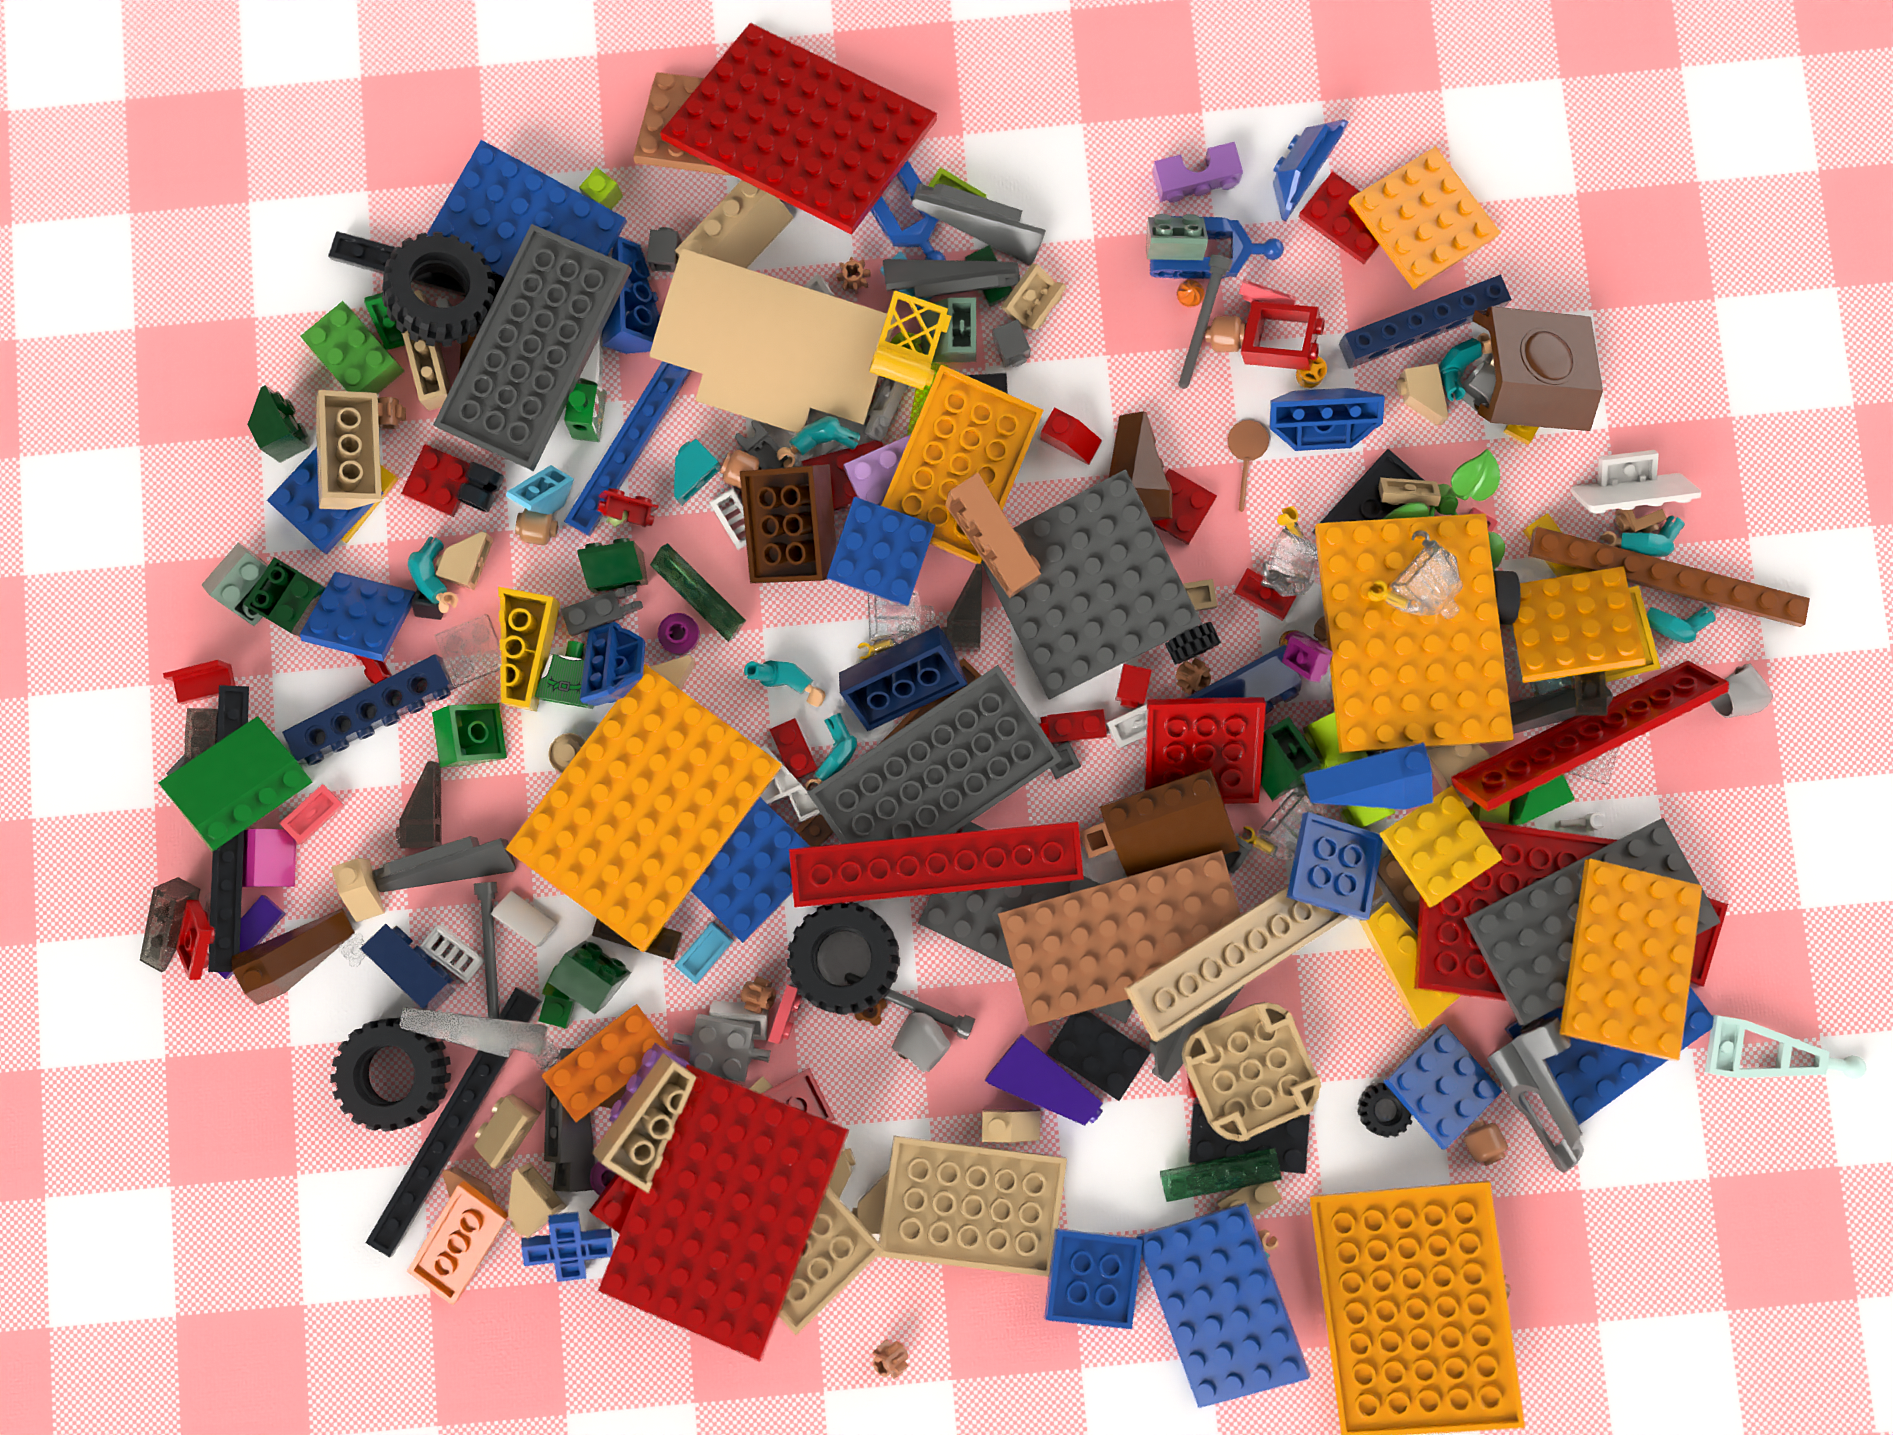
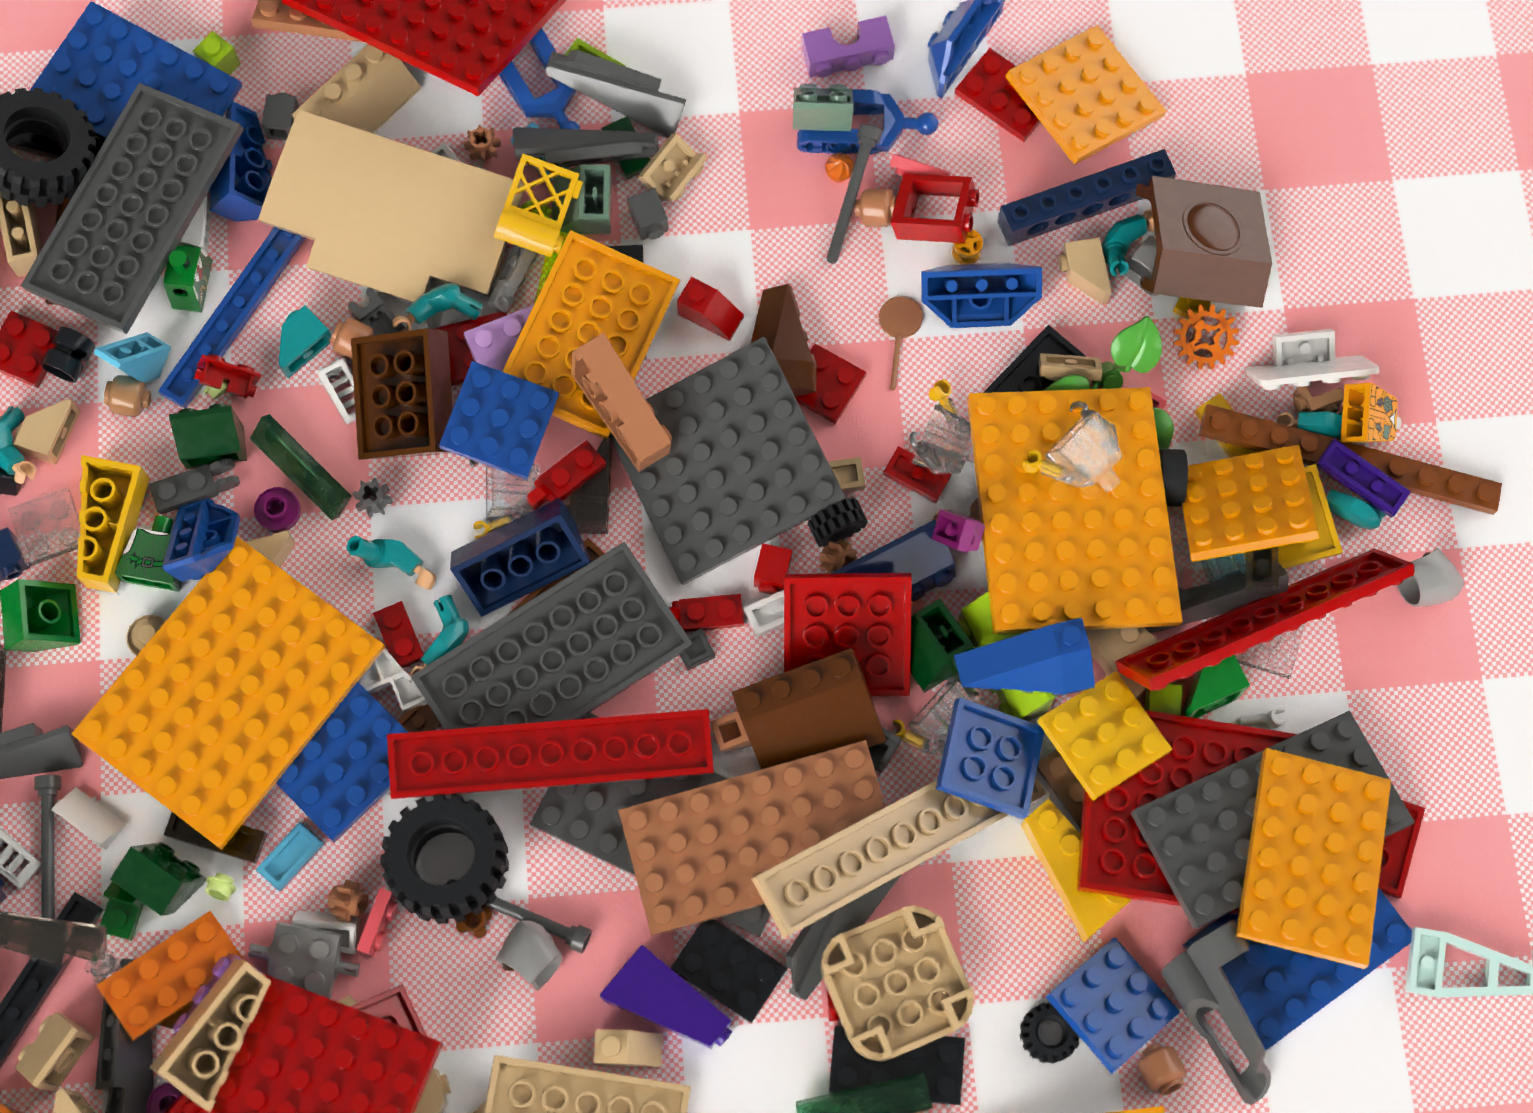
camera: 10 degrees left, 10 degrees down
(644, 981) = (220, 886): none -> yellowish green plate
(761, 627) = (366, 503): none -> flat silver gear
(943, 602) = (566, 475): none -> red hinge
(1545, 453) = (1198, 325): none -> orange gear
(1681, 597) = (1362, 478): none -> dark purple tile
(1688, 537) = (1368, 414): none -> light orange torso

